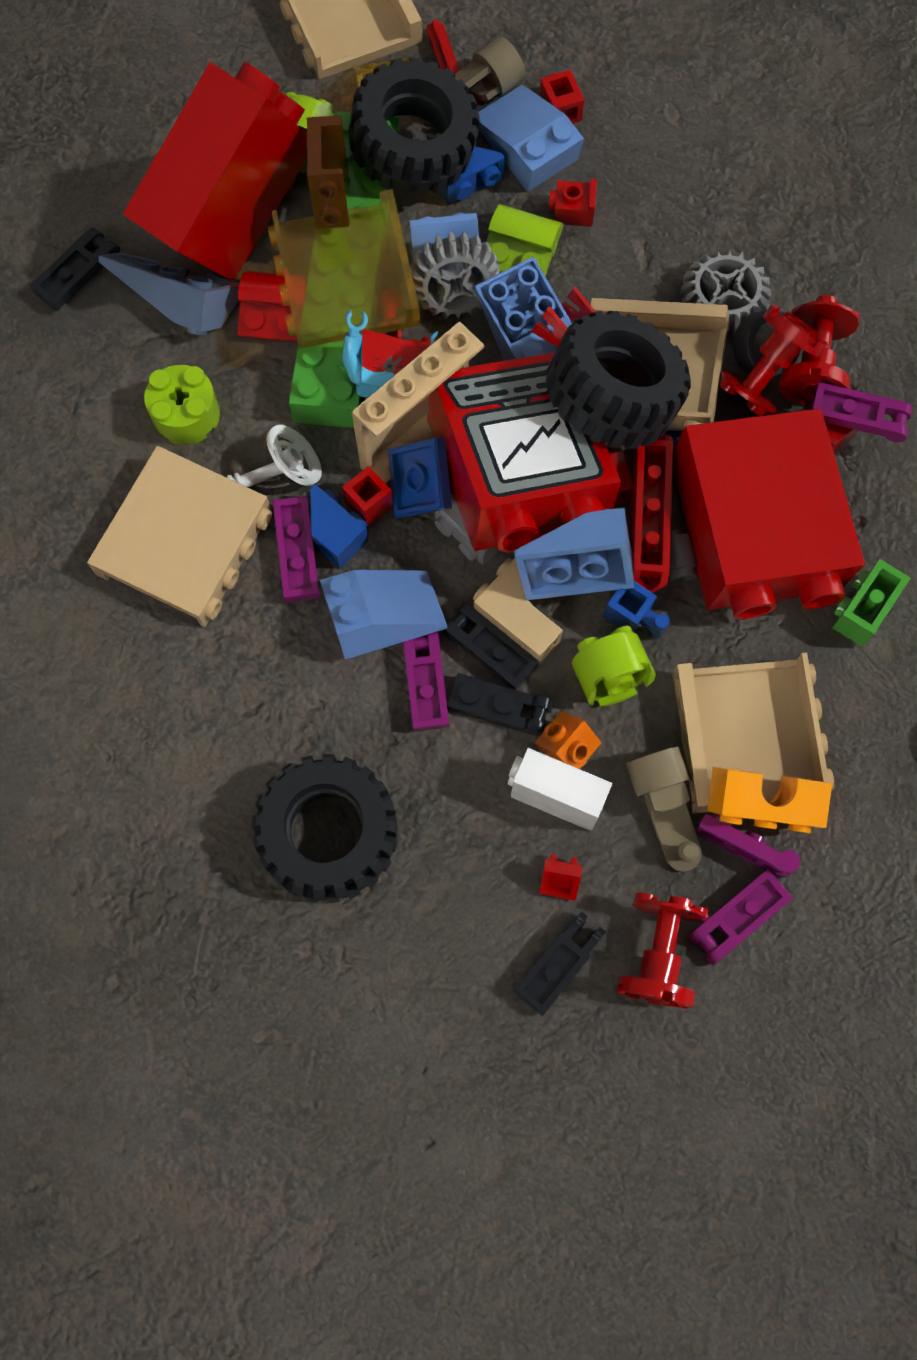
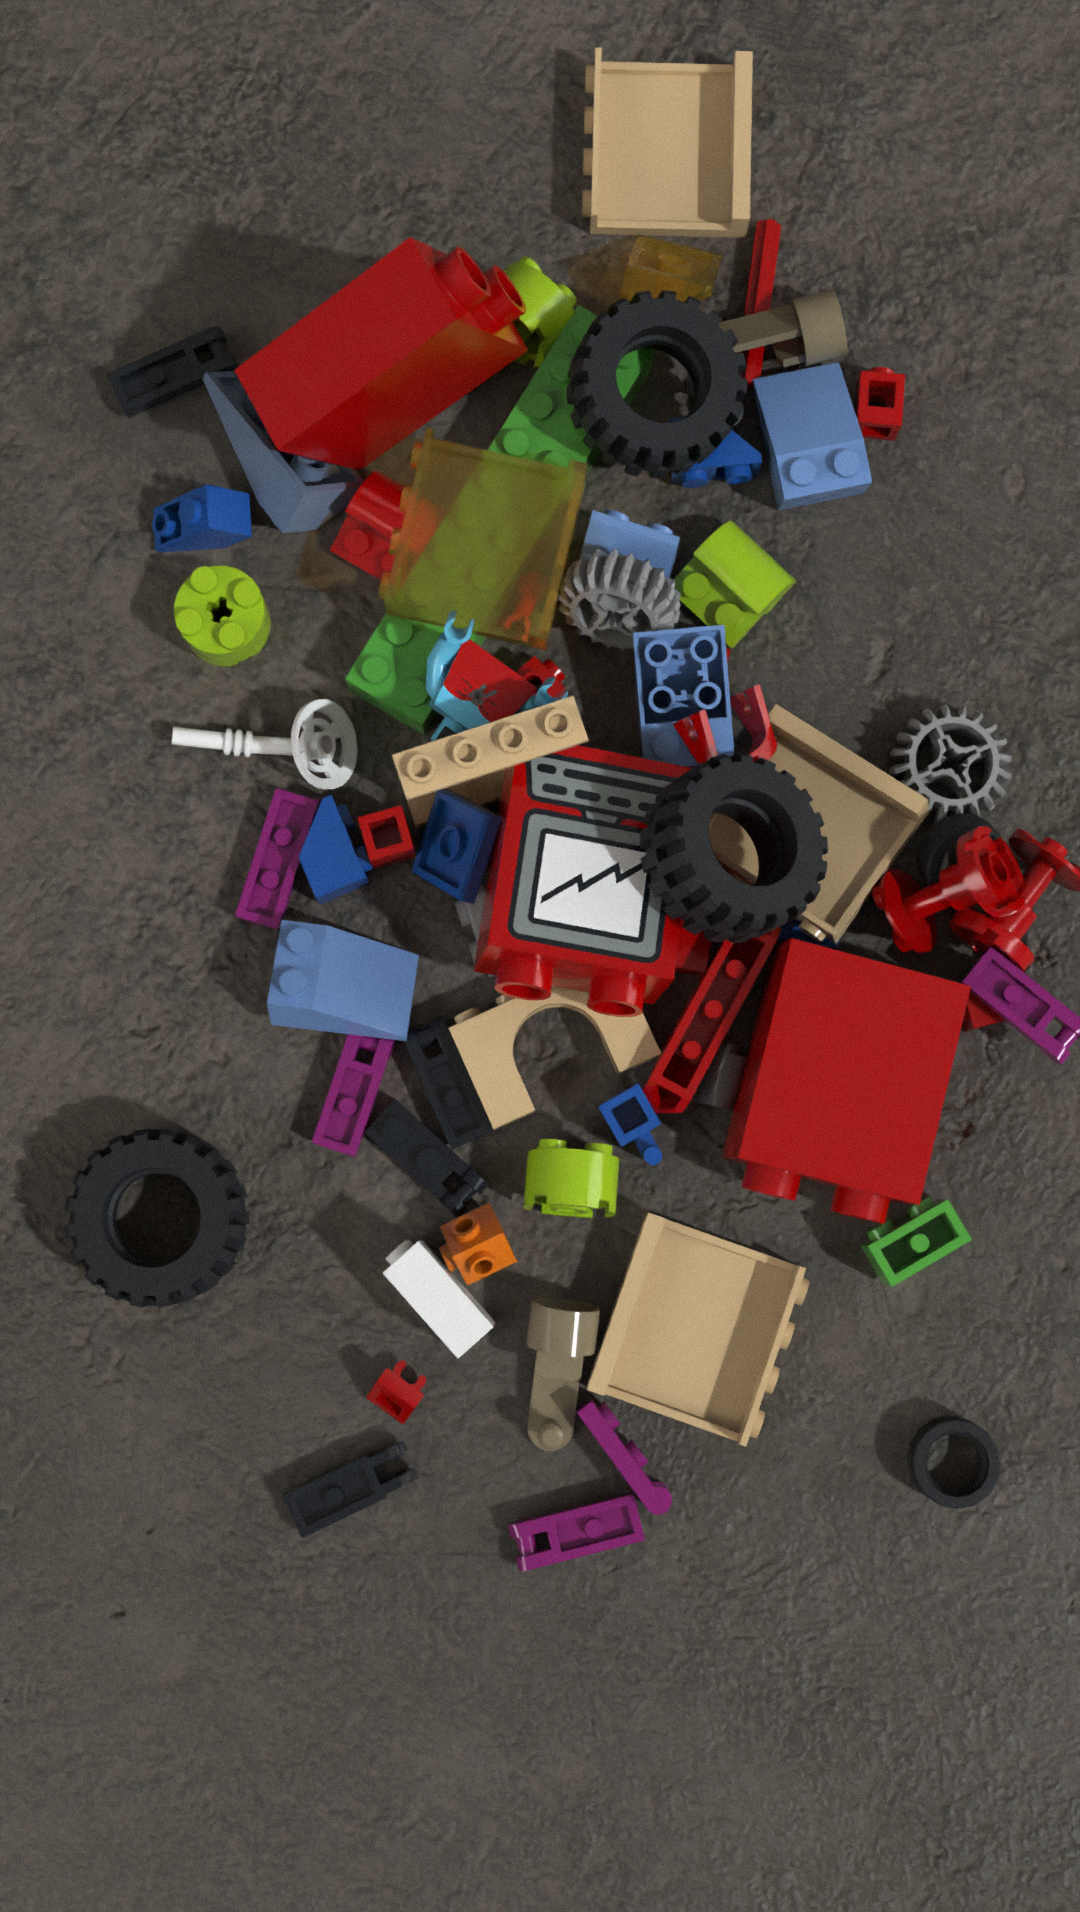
camera: 25 degrees right, 10 degrees up
(139, 350) = (202, 520): none -> blue slope
(182, 535) = (150, 784): tan panel -> none
(327, 170) = (525, 377): reddish brown panel -> none
(574, 202) = (827, 570): red brick -> none
(578, 557) = (589, 1041): medium blue slope -> none
(660, 965) = (455, 1547): red piece -> none
(798, 802) = (700, 1442): light orange arch -> none

